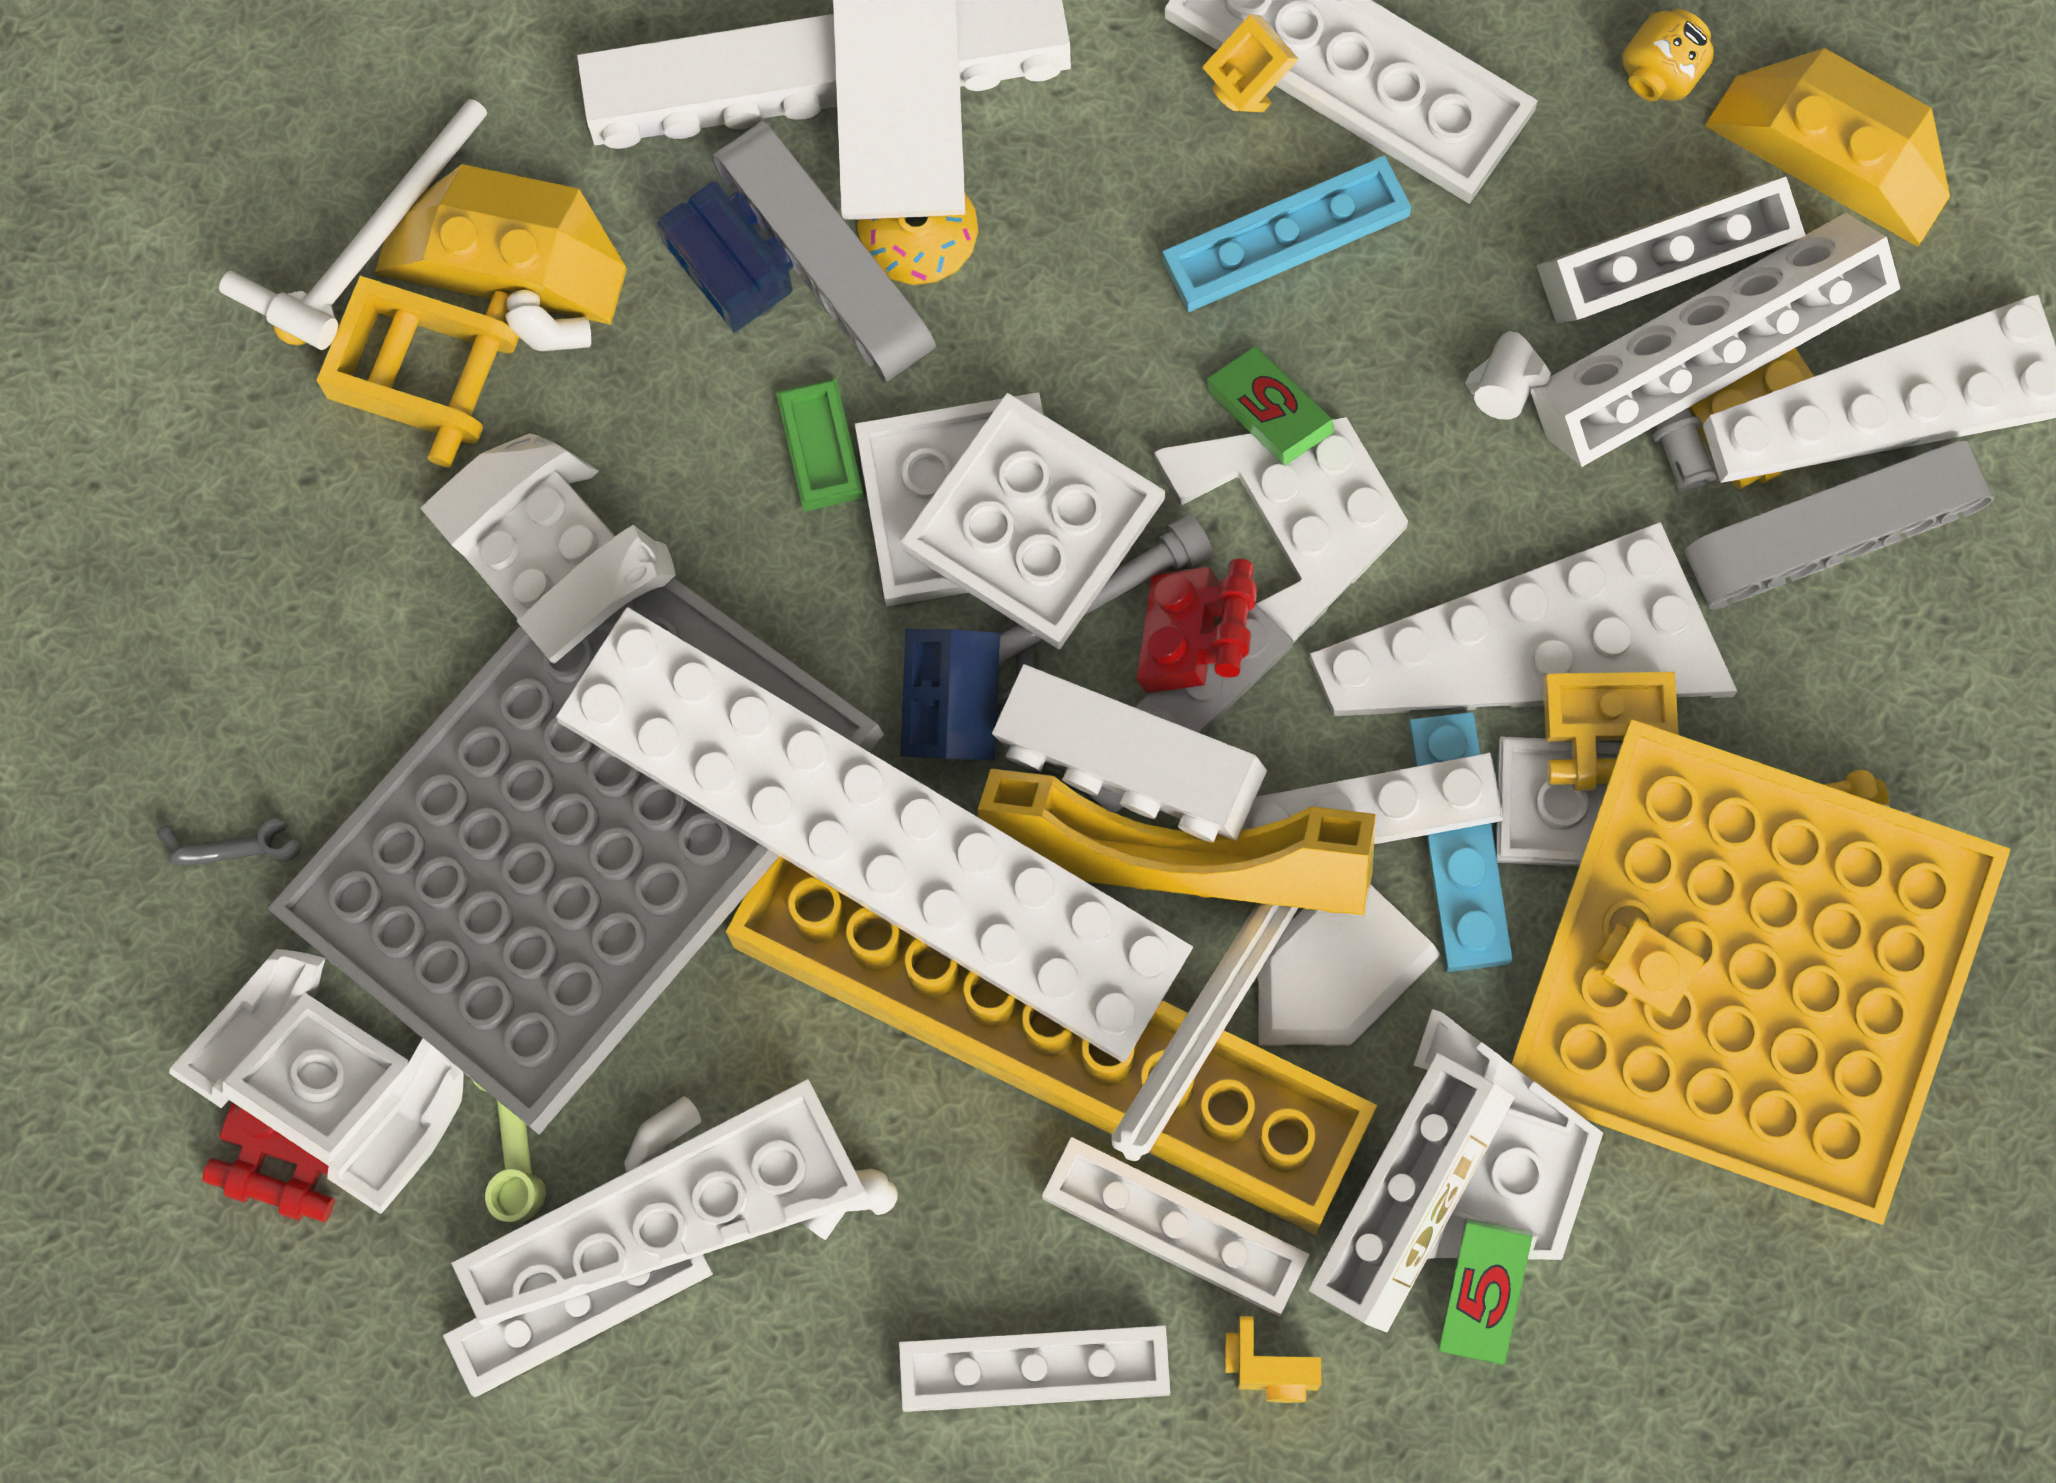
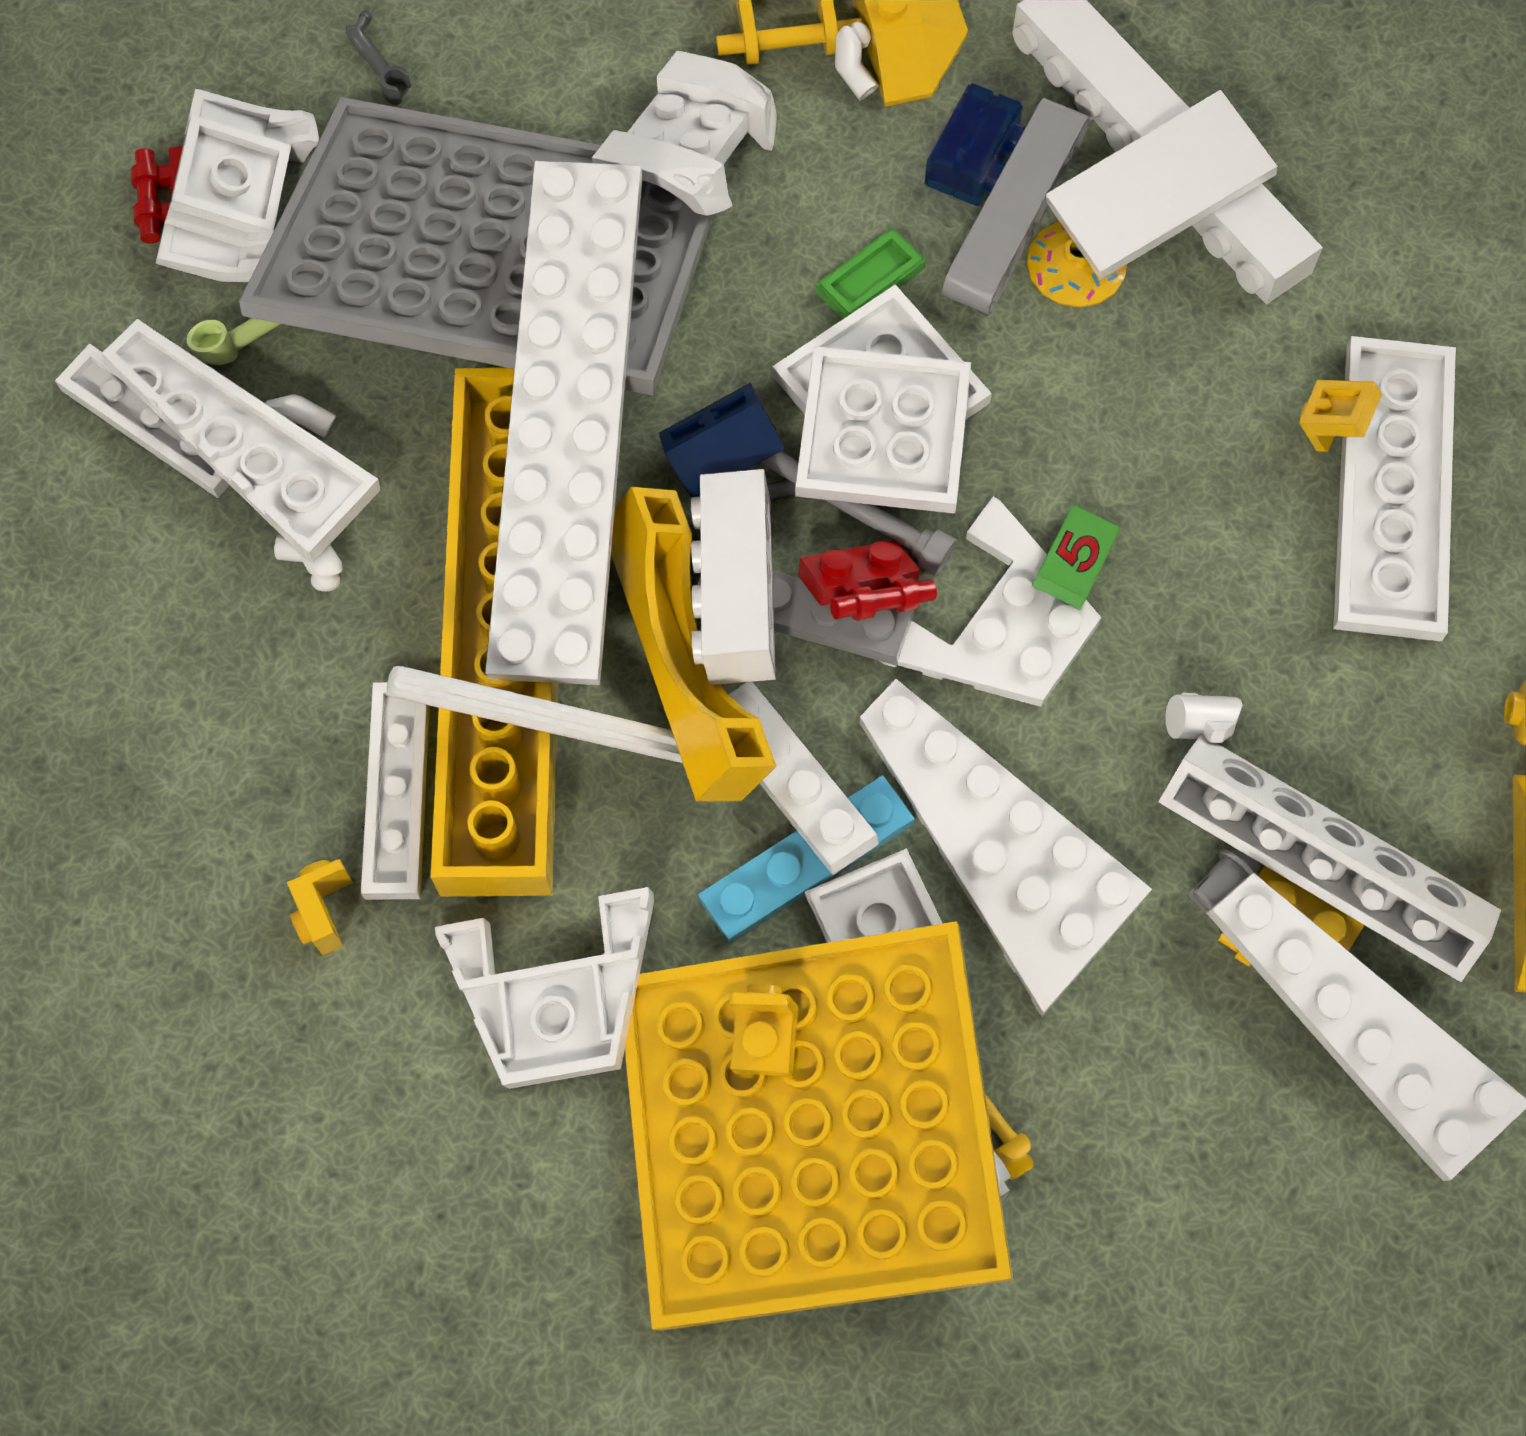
camera: 60 degrees right, 5 degrees down
(1034, 1368) = (243, 743): white plate -> none
(1286, 233) = (1225, 507): medium azure plate -> none
(1338, 974) = (651, 820): white tile -> none
(1411, 1193) = (488, 934): white brick -> none
(1485, 1291) = (449, 1037): bright green tile -> none
(1599, 708) = (960, 894): yellow plate -> none
(1671, 250) = (1383, 787): white brick -> none
(1838, 522) = (1234, 1029): light grey beam -> none

